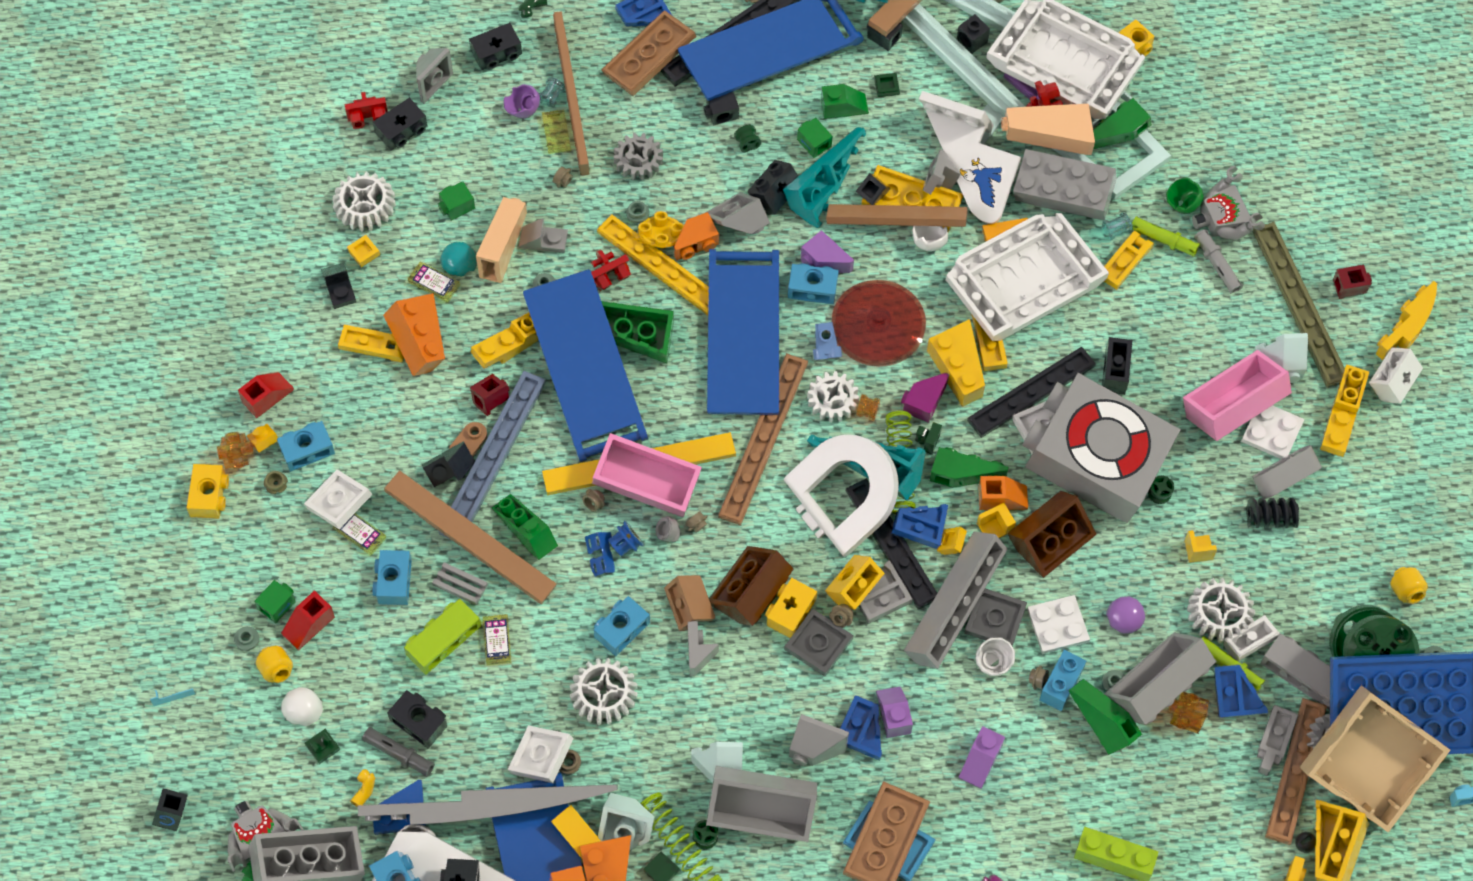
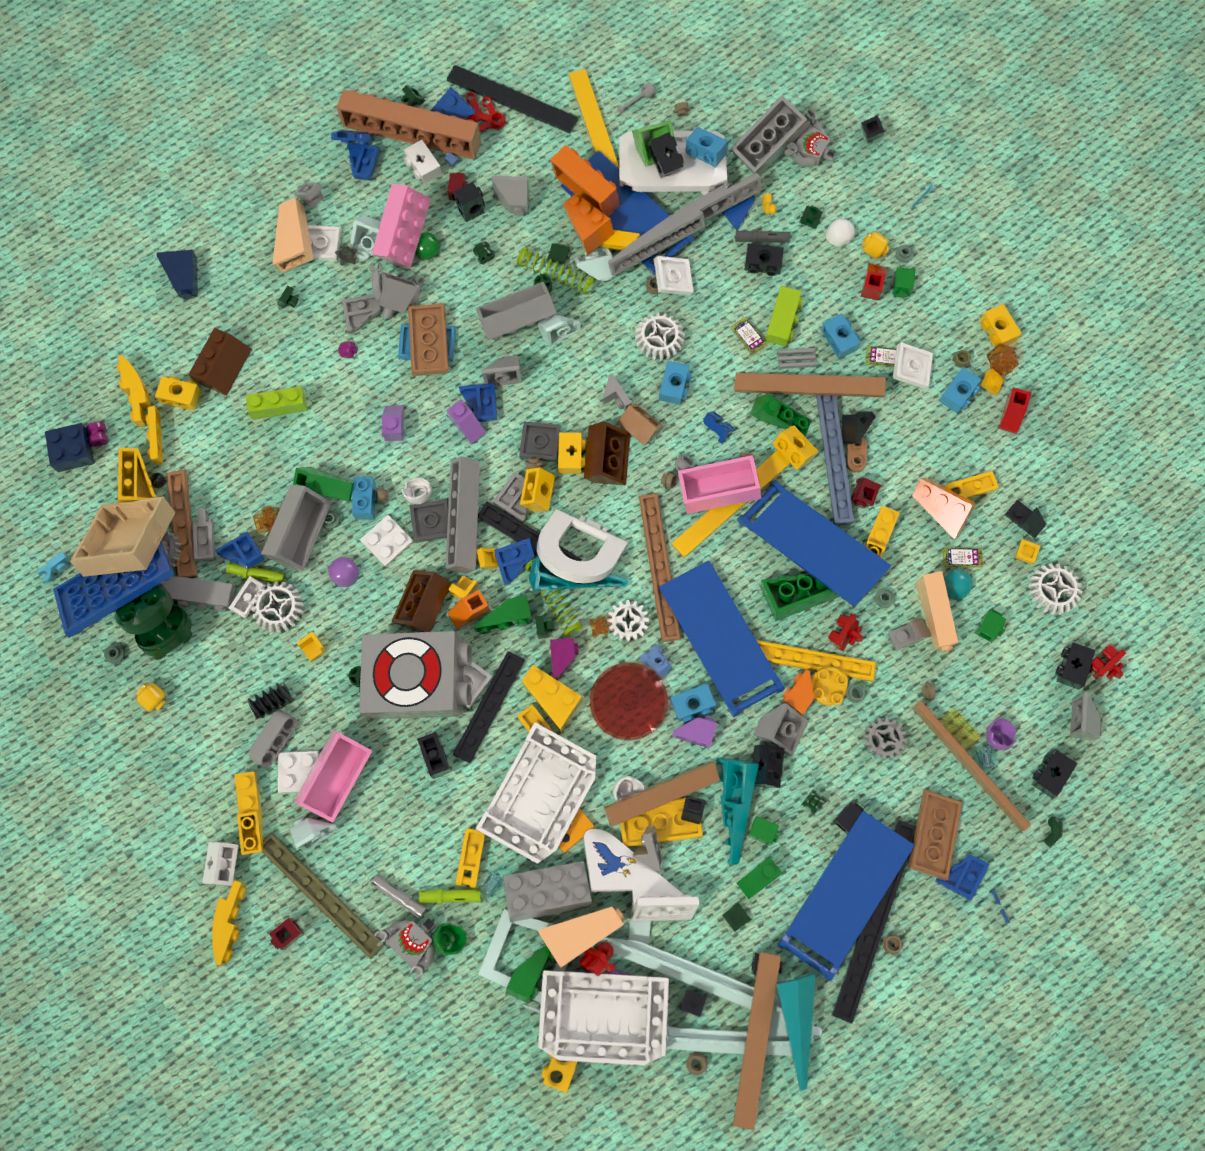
camera: 155 degrees right, 10 degrees up
(534, 477) = (795, 447): none -> yellow brick
(626, 533) = (707, 442): blue piece -> none

